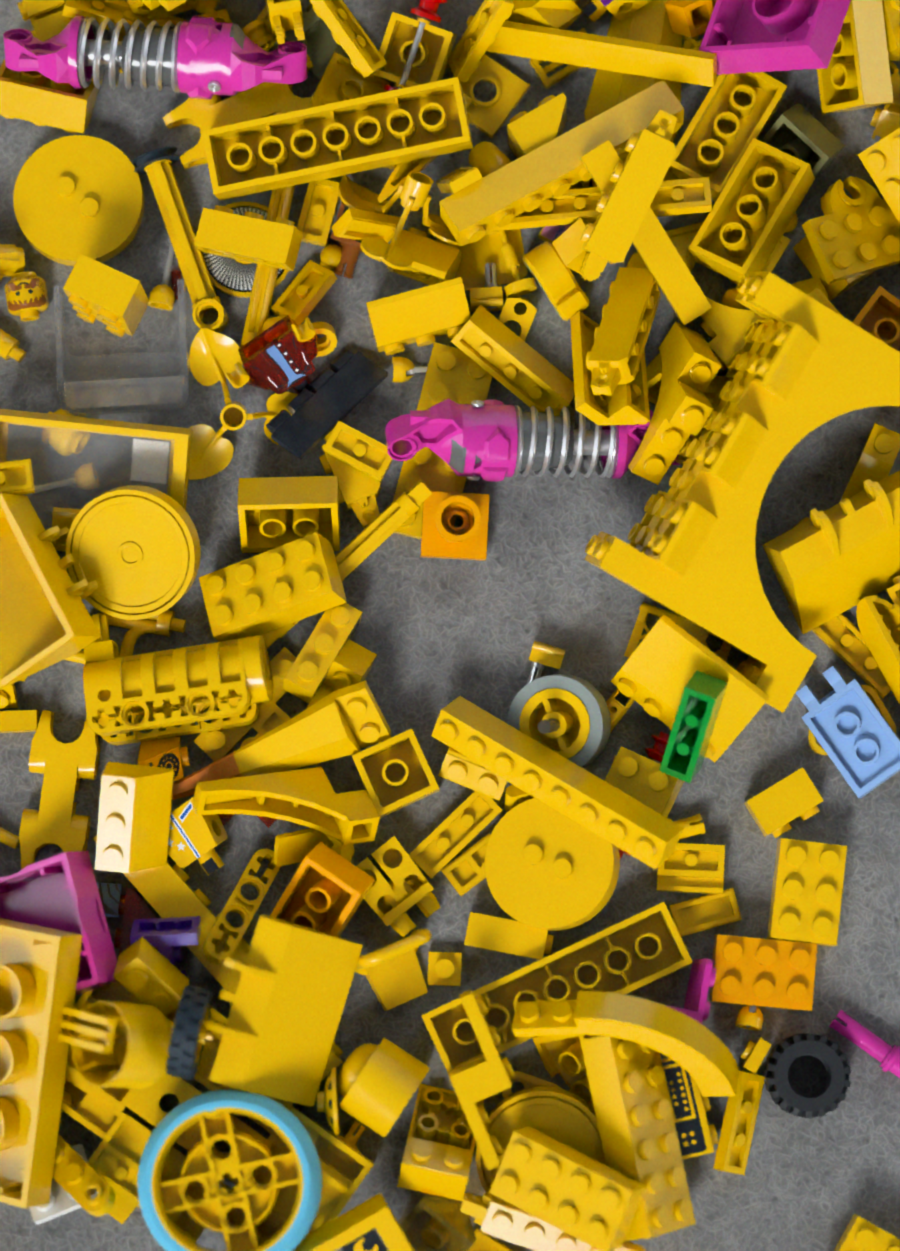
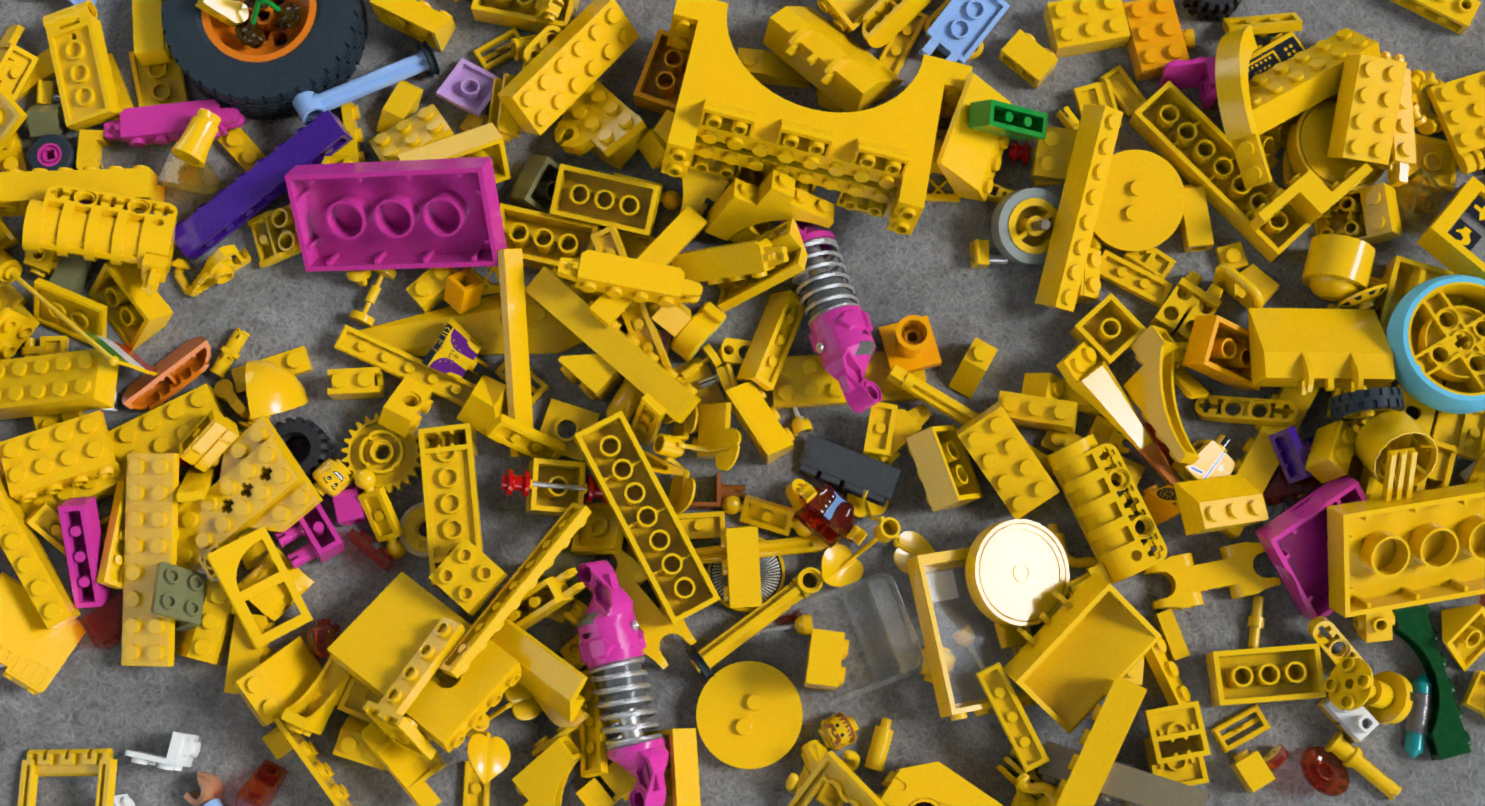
camera: 110 degrees left, 5 degrees down
(359, 224) = (703, 480): yellow tile -> none
(405, 596) = (973, 368): none -> yellow slope
(754, 1054) = (1211, 26): yellow plate -> none

